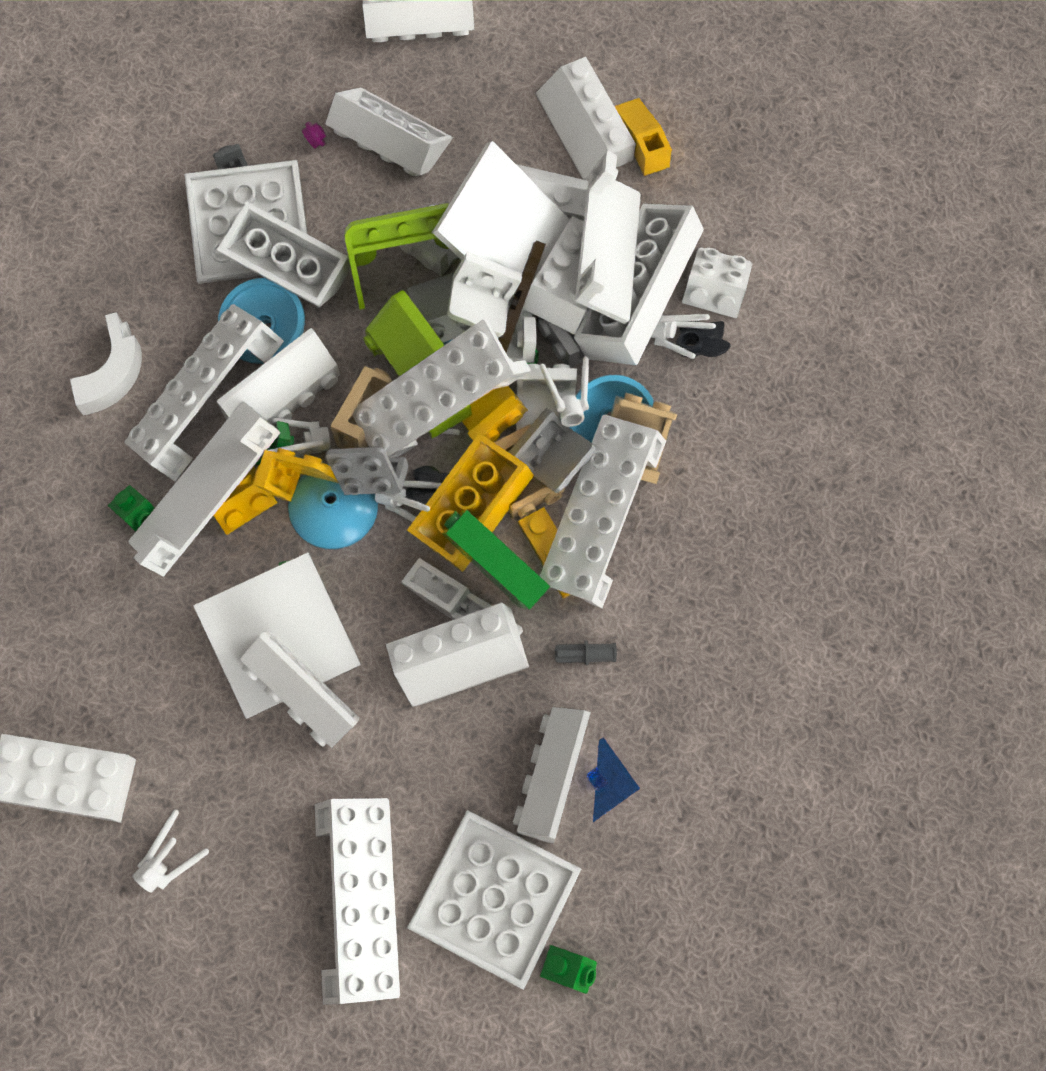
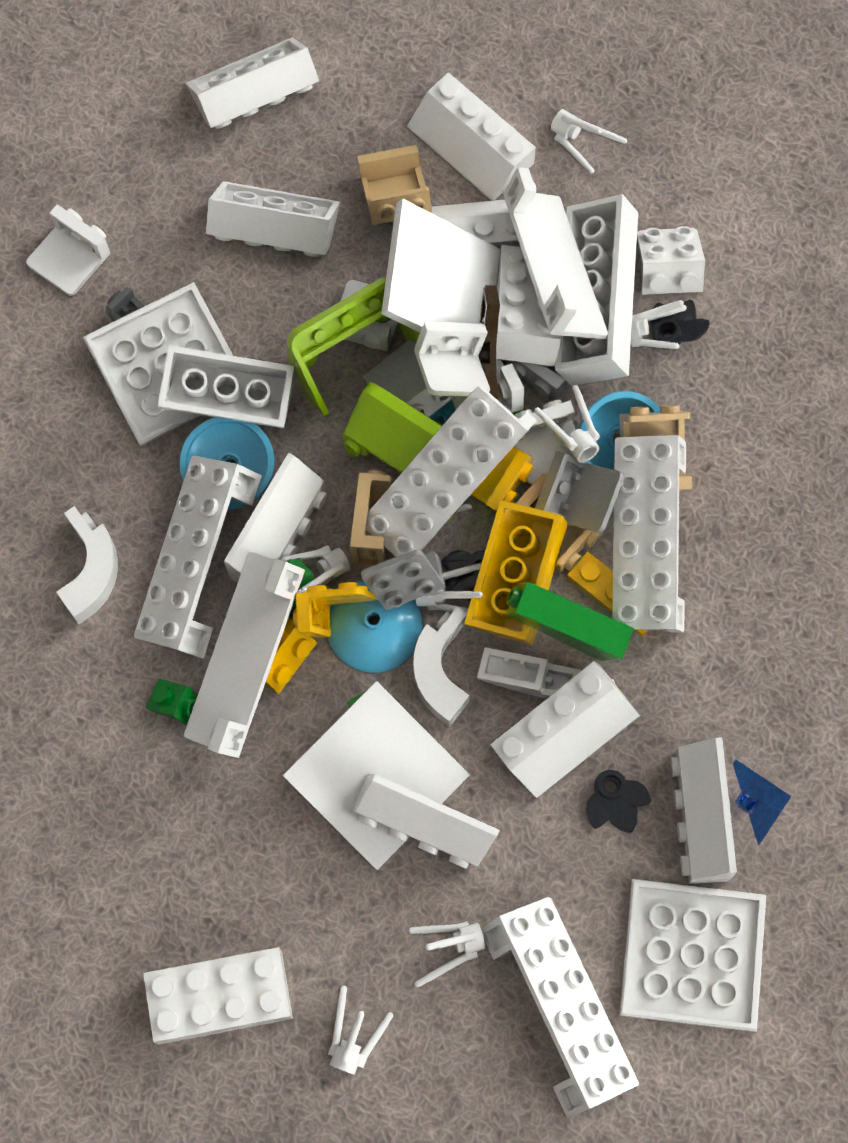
camera: 15 degrees left, 0 degrees up
(206, 102) = (69, 251): none -> white bracket
(297, 809) = (466, 939): none -> white plant
(314, 134) = (197, 248): magenta plate -> none
(362, 558) = (435, 689): none -> white arch
(481, 740) = (617, 806): none -> black plate
(507, 127) = (390, 178): none -> tan panel
(569, 969) = (792, 995): green bracket -> none
(585, 653) = (687, 682): dark grey axle -> none
(652, 146) = (552, 143): yellow slope -> none
(677, 140) = (569, 126): none -> white plant

